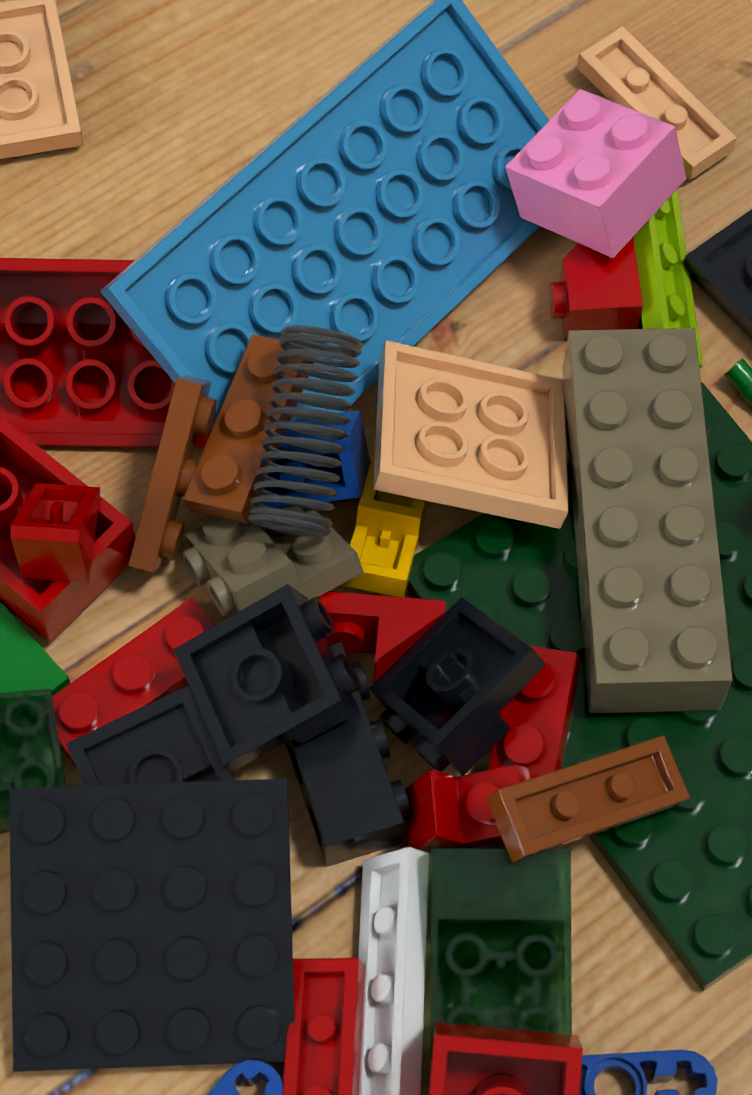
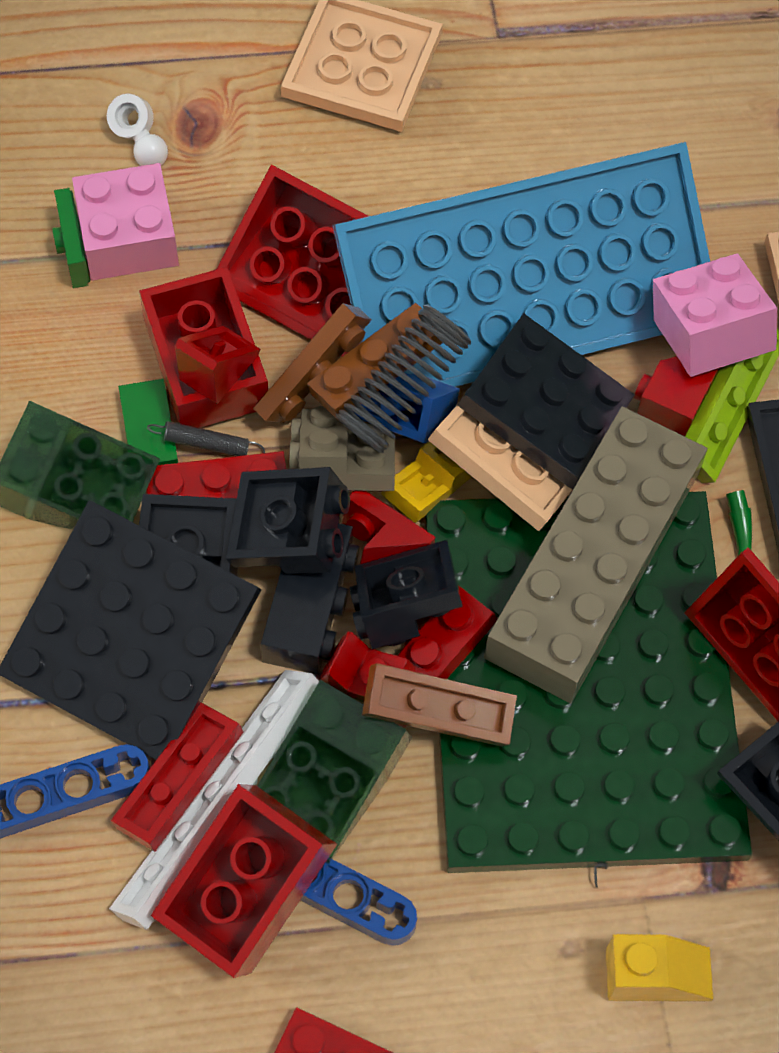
camera: 30 degrees right, 0 degrees up
(87, 635) = (205, 439): none -> dark grey piece
(471, 371) = (546, 400): none -> black plate

